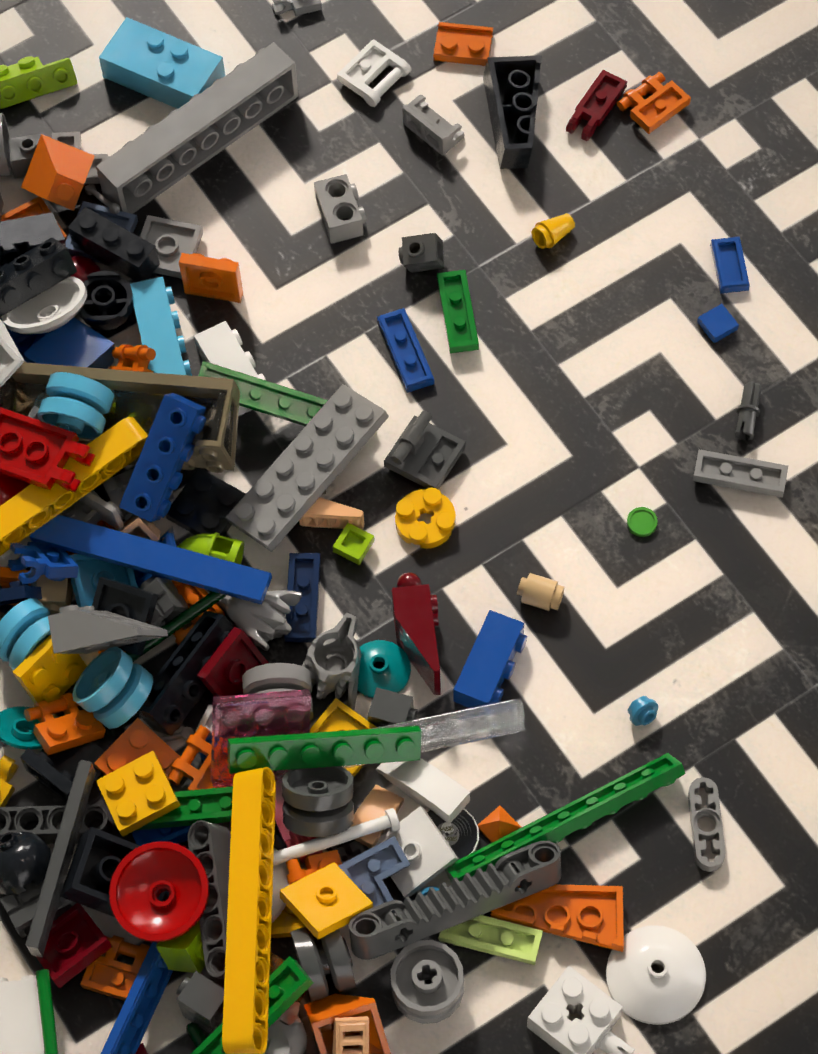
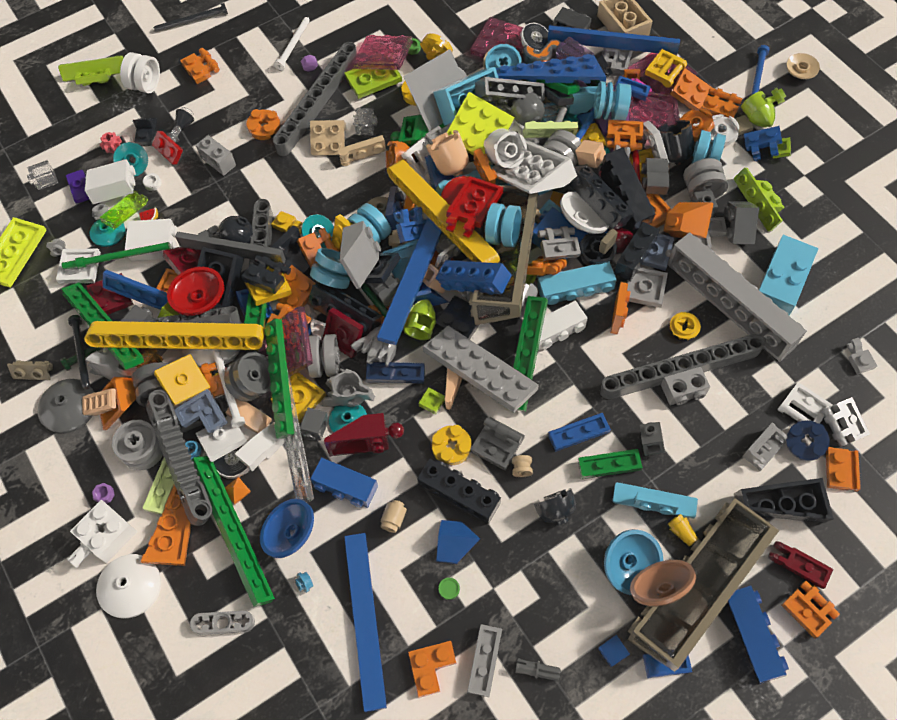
camera: 90 degrees right, 0 degrees up
(67, 104) = (743, 222): none -> dark grey brick
(102, 275) = (608, 241): none -> dark tan tile
(103, 345) = (559, 248): none -> light grey plate
(133, 790) = (263, 278): none -> black plate
(234, 193) = (692, 329): none -> yellow gear
(282, 129) = (689, 360): none -> dark grey beam
(398, 21) = (850, 419): none -> plate
(436, 63) = (814, 431): none -> dark blue plate
(462, 421) = (522, 466): none -> tan wheel
(500, 504) = (459, 491): none -> black brick
(508, 1034) = (103, 492): none -> medium lavender tile
(511, 261) = (655, 500): none -> medium azure bracket
(522, 376) = (556, 507): none -> black cylinder
(547, 744) = (287, 528): none -> blue dish
(575, 510) = (454, 541): none -> blue slope
(603, 285) = (641, 552): none -> dark azure dish
(627, 247) = (663, 583): none -> nougat dish
(632, 207) = (720, 567): none -> clear smoke window
(691, 160) = (756, 636): none -> blue brick
(691, 628) = (365, 623): none -> blue tile
(749, 550) = (426, 661): none -> orange plate

